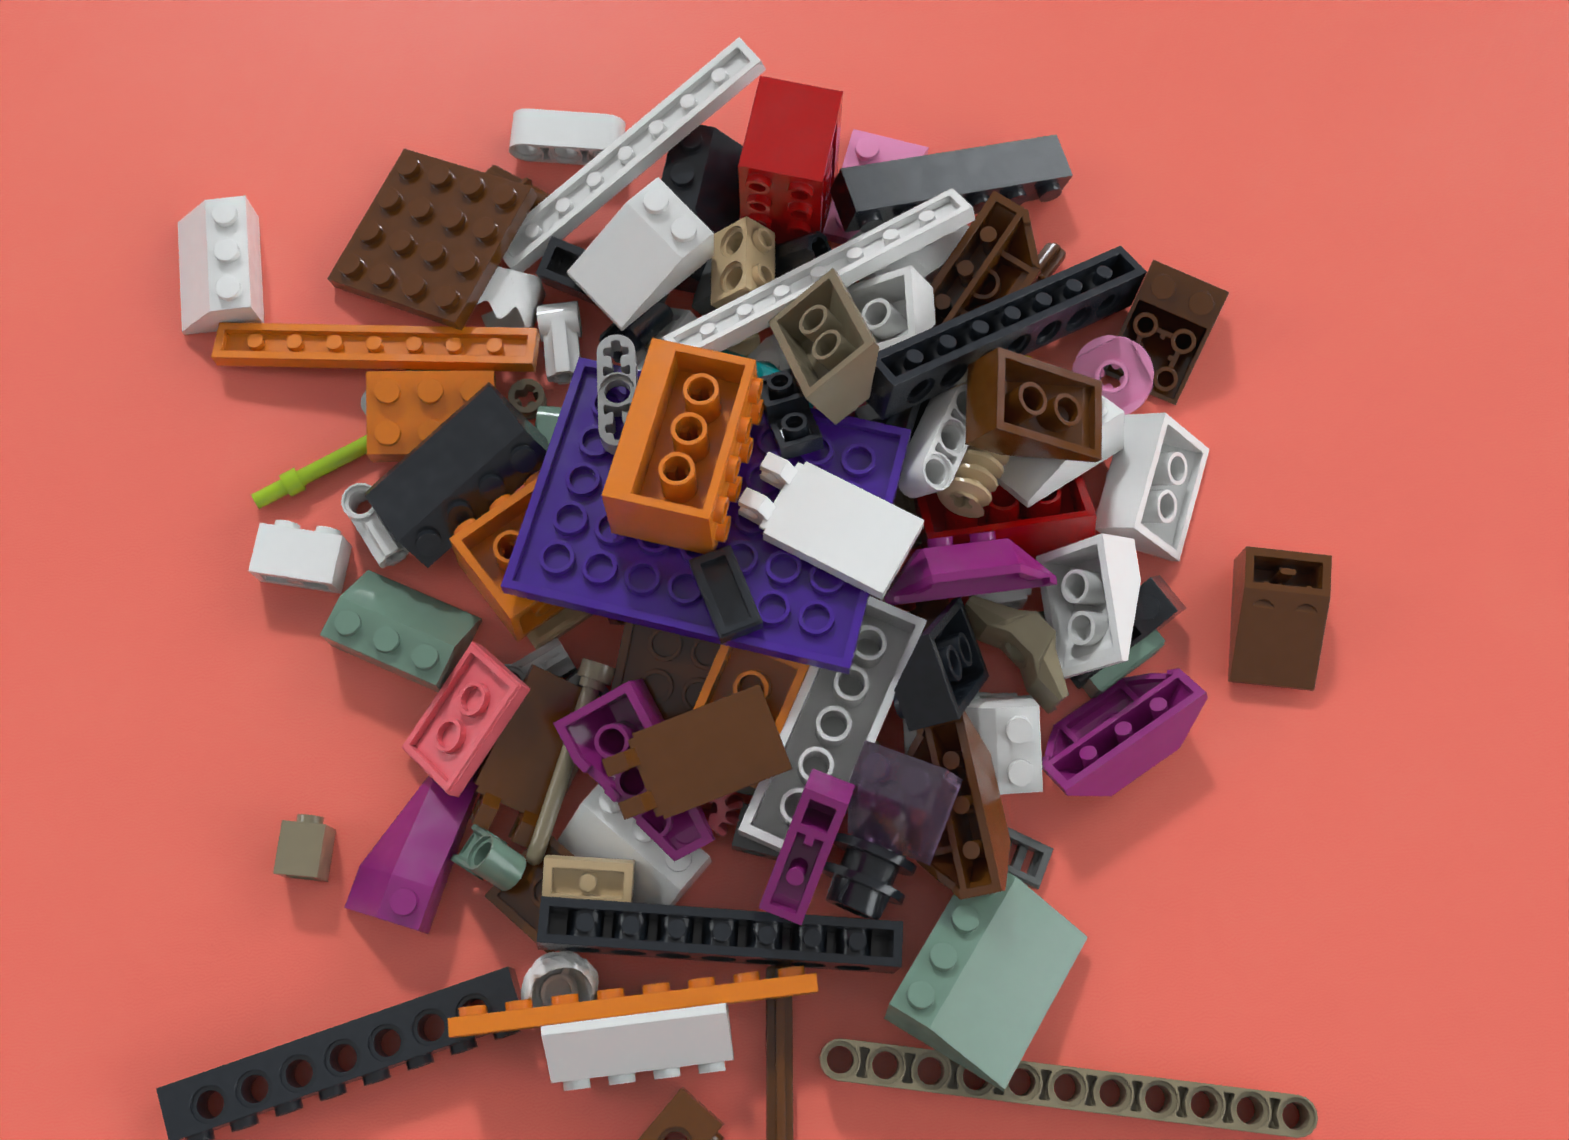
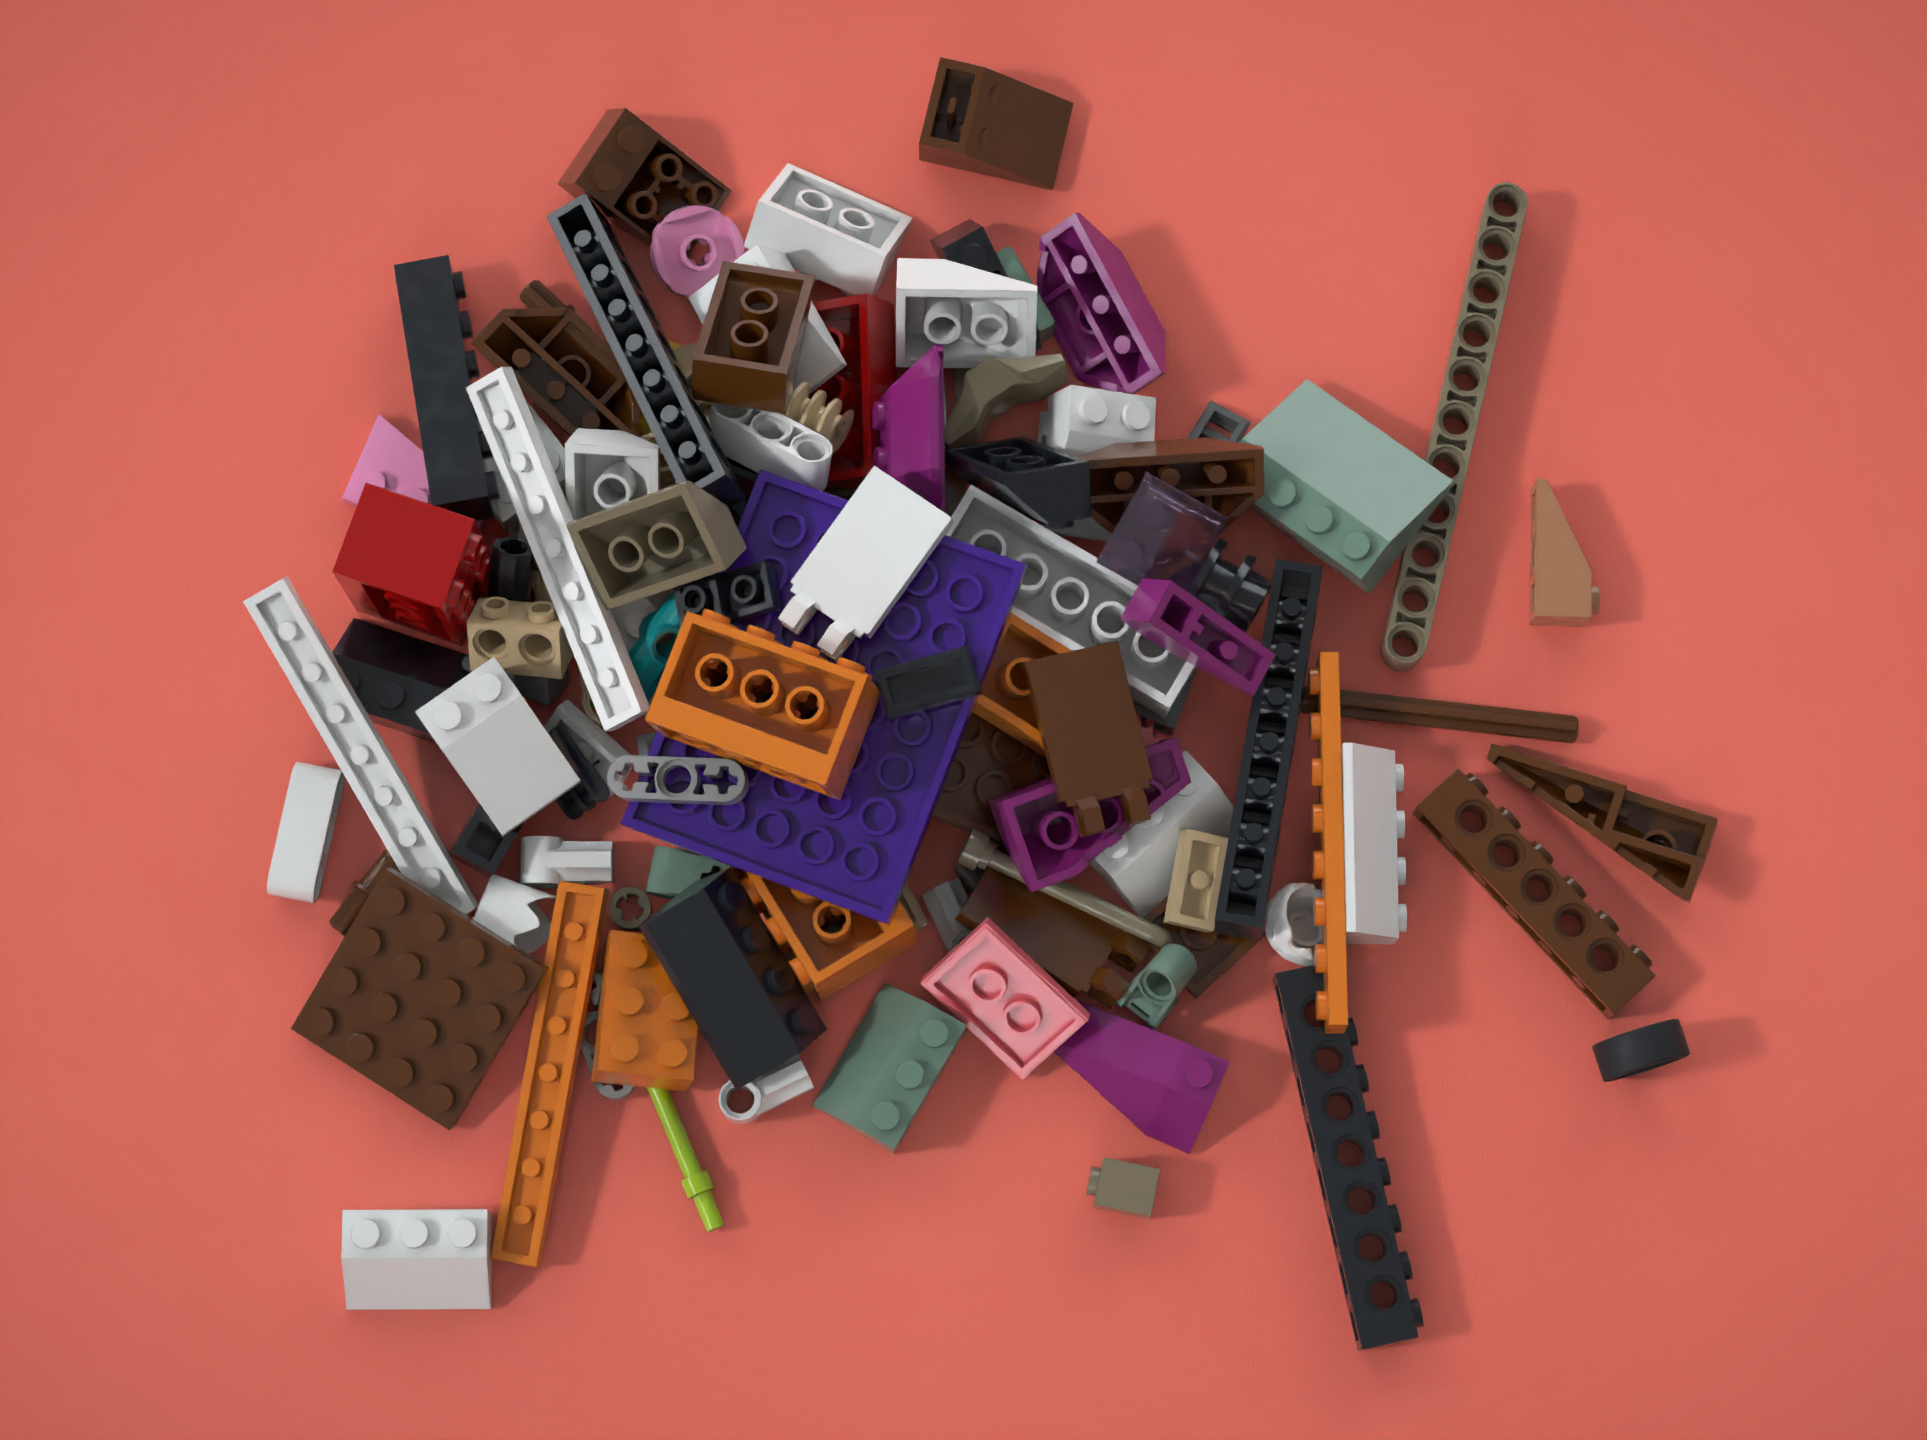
camera: 85 degrees left, 5 degrees up
(300, 556) = (791, 1175): white brick -> none

